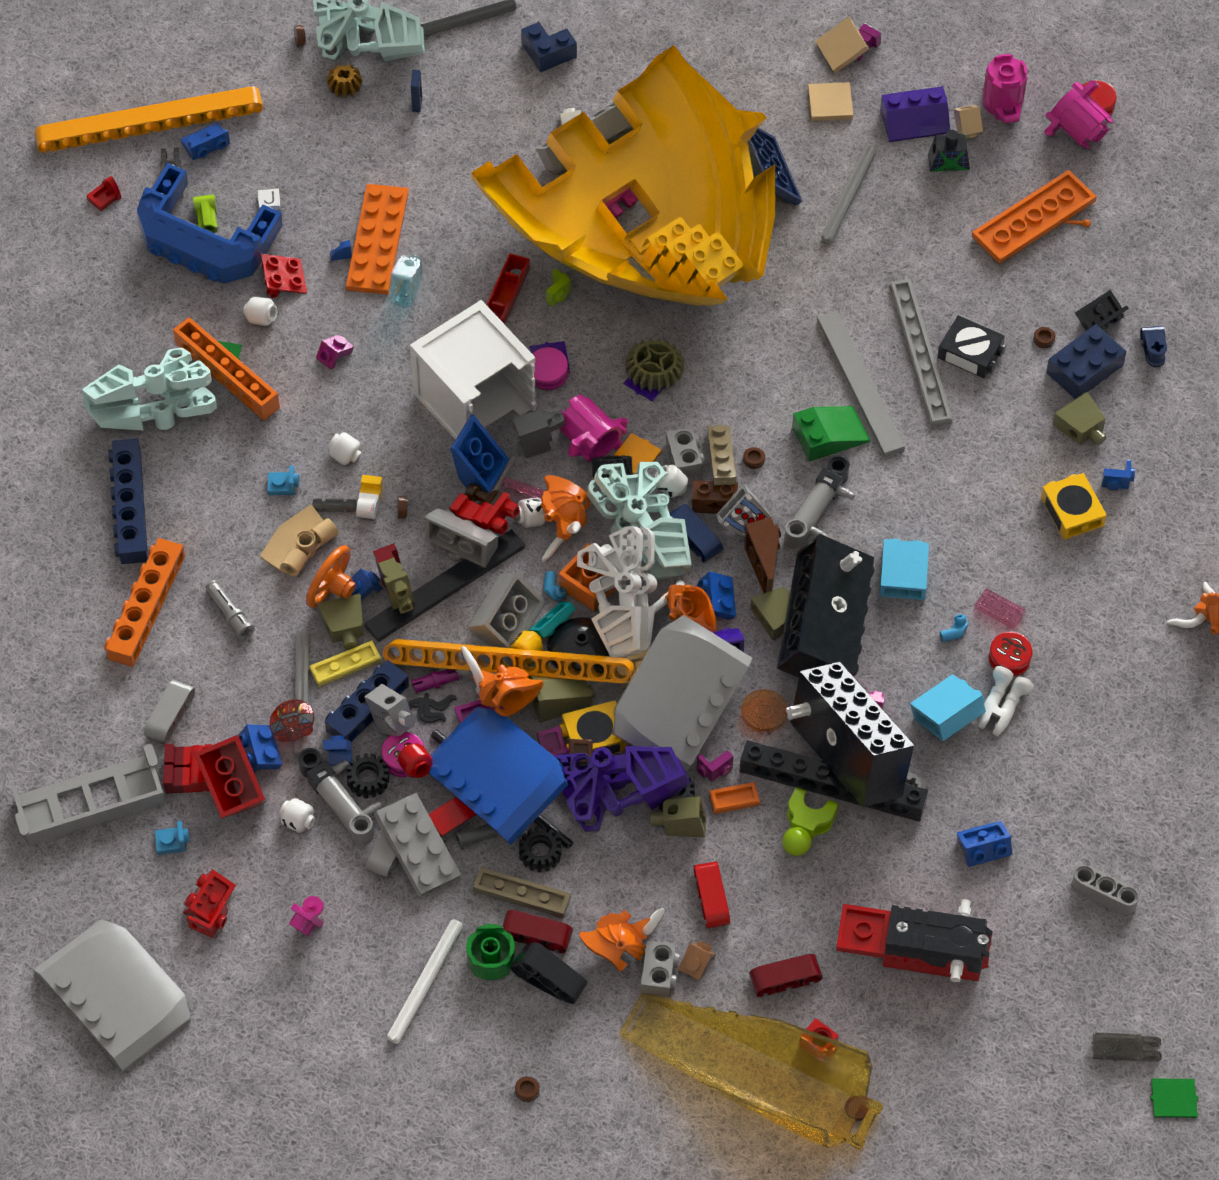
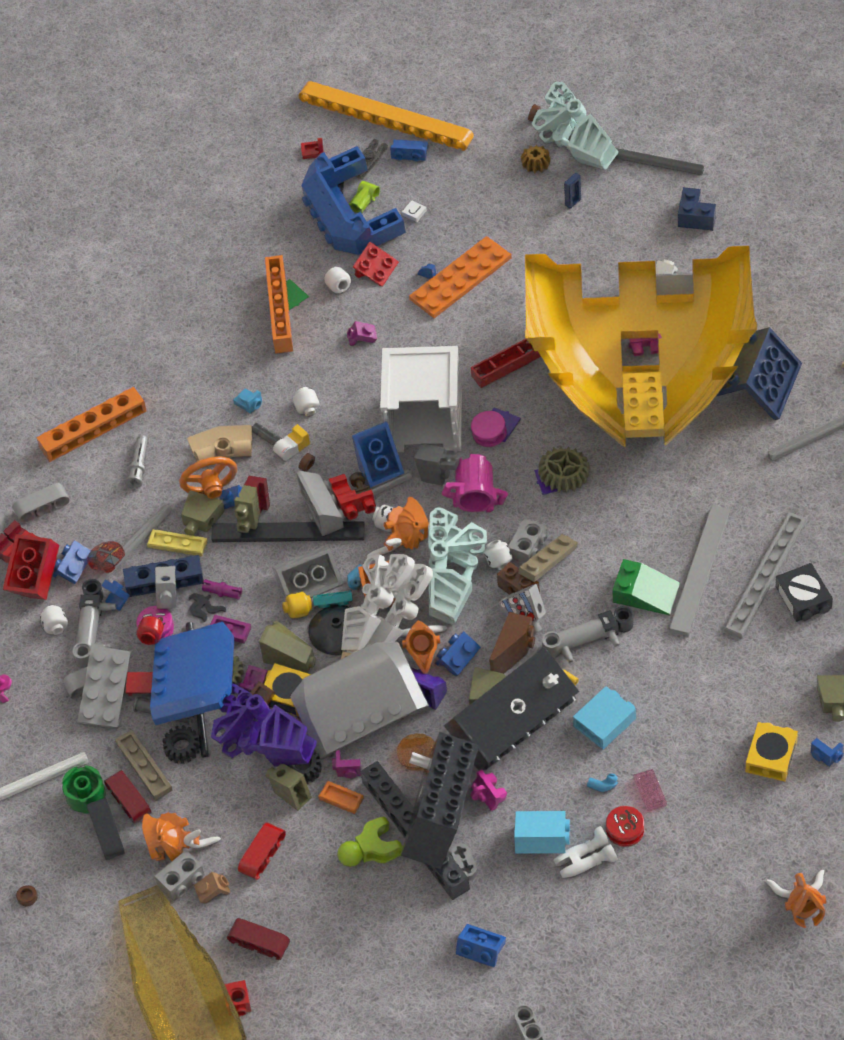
camera: 45 degrees right, 5 degrees down
(114, 401) = (238, 296): light aqua piece -> none
(136, 549) = (142, 353): dark blue brick -> none
(367, 763) = (120, 614): black tyre -> none
(410, 271) = (448, 313): clear light blue torso -> none
(506, 689) = (245, 619): orange helmet -> none
(518, 657) = (272, 604): light orange beam -> none
(523, 487) = (394, 494): clear pink tile -> none
(560, 288) = (543, 381): lime bracket -> none
(599, 461) = (466, 516): black tyre -> none
(639, 450) = (497, 523): light orange piece -> none
(700, 537) = (482, 600): dark blue beam -> none
(754, 458) = (575, 575): reddish brown tile -> none
(918, 939) = (363, 976): piece -> none

